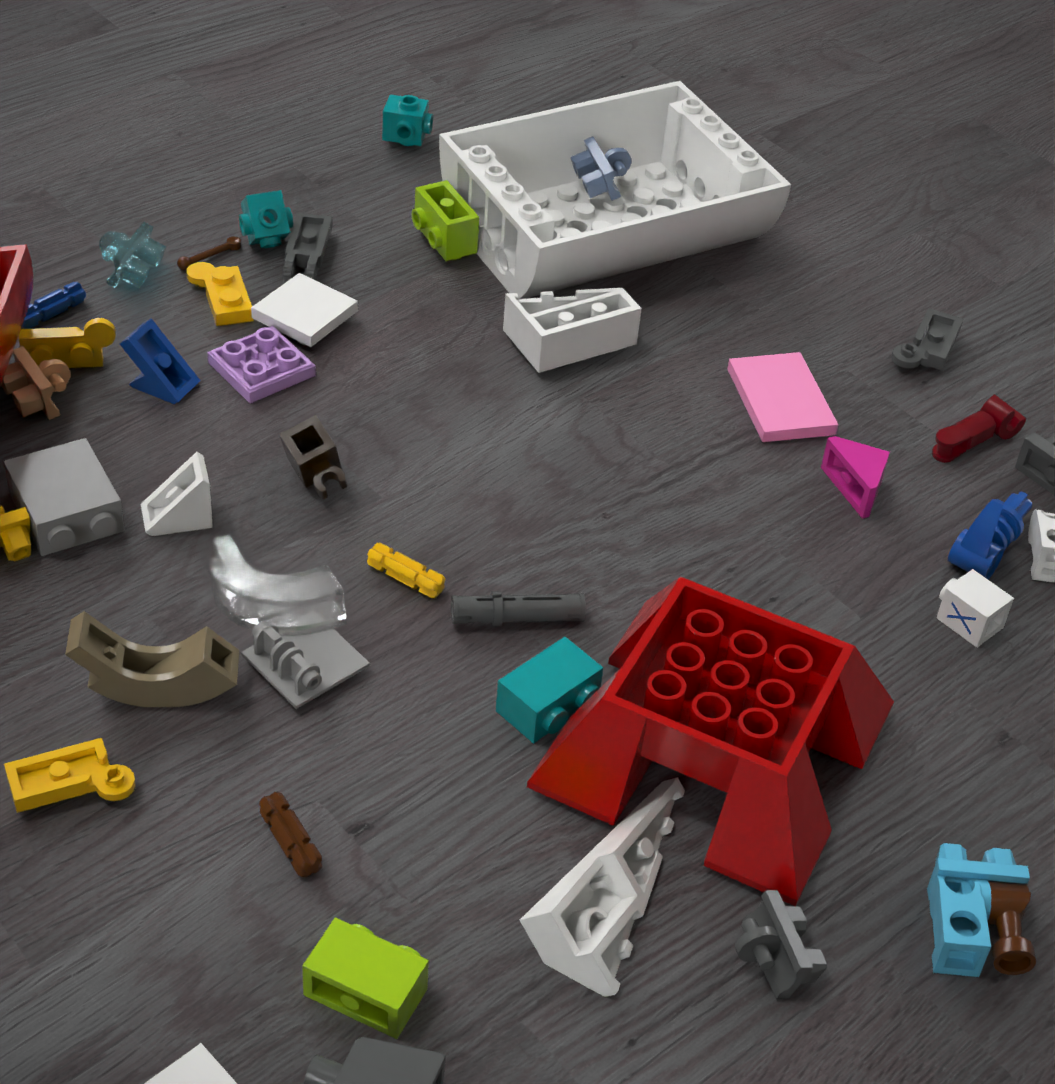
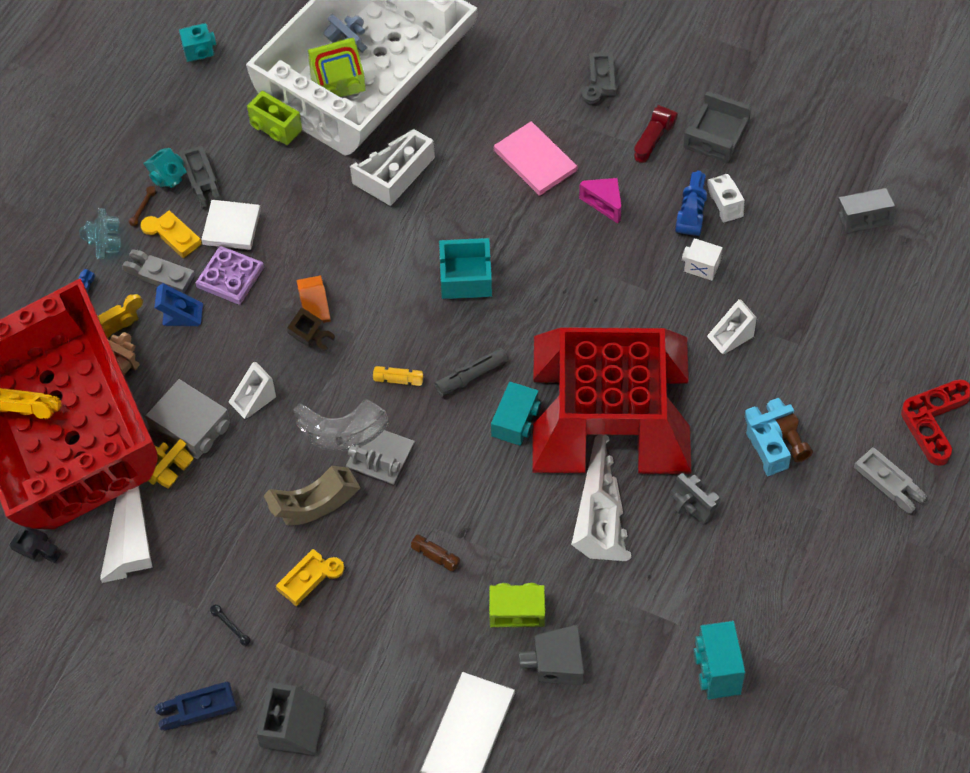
camera: 20 degrees left, 15 degrees up
(177, 325) = (158, 271): none -> light grey hinge
(353, 431) = (314, 297): none -> orange slope
(562, 184) = (337, 67): none -> lime slope
(592, 473) = (465, 268): none -> teal piece
(981, 719) = (733, 328): none -> white slope

